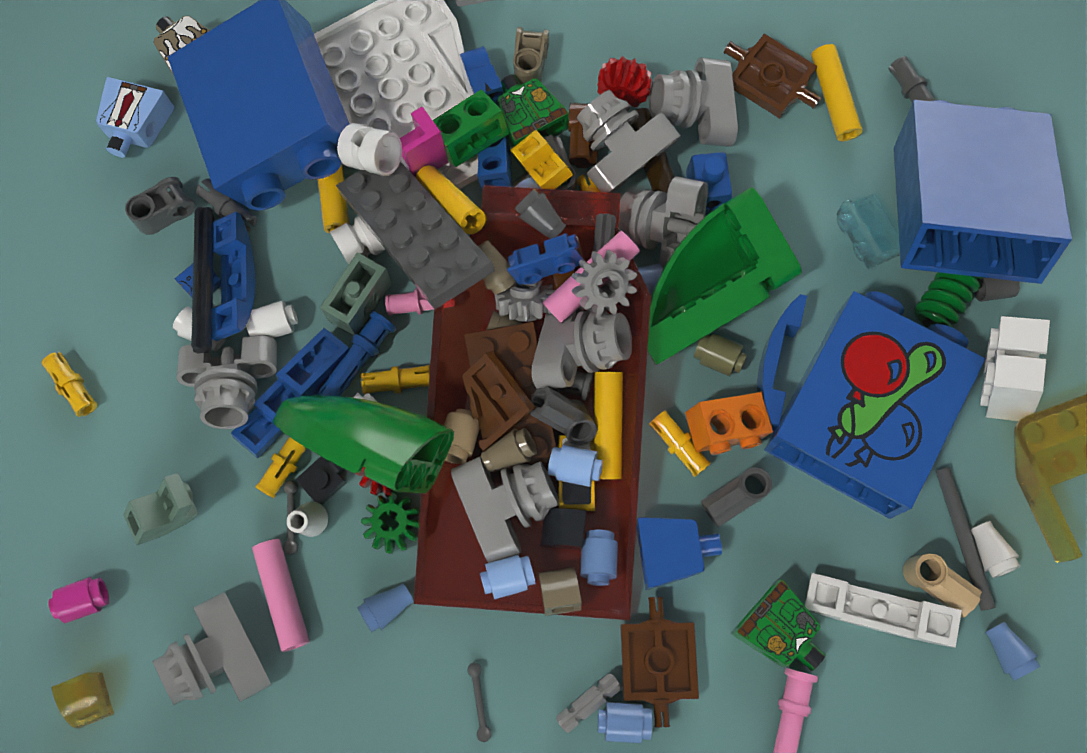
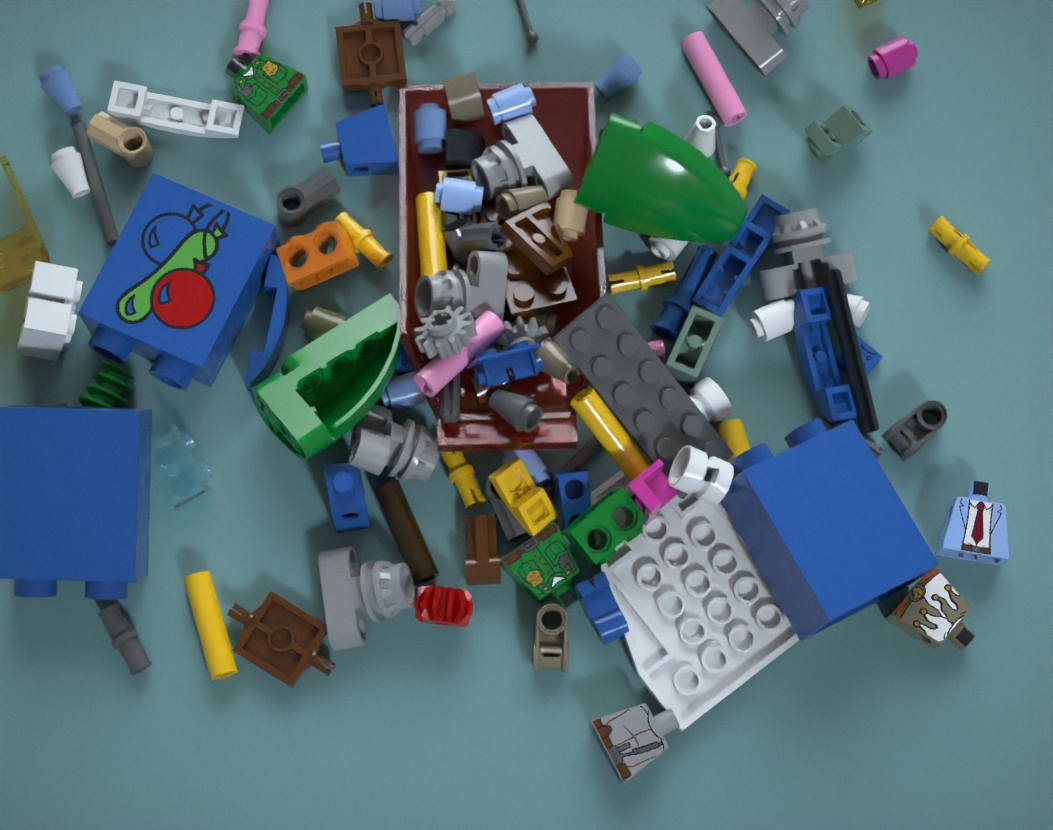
camera: 165 degrees right, 0 degrees up
(609, 125) = (442, 519): light grey beam -> none

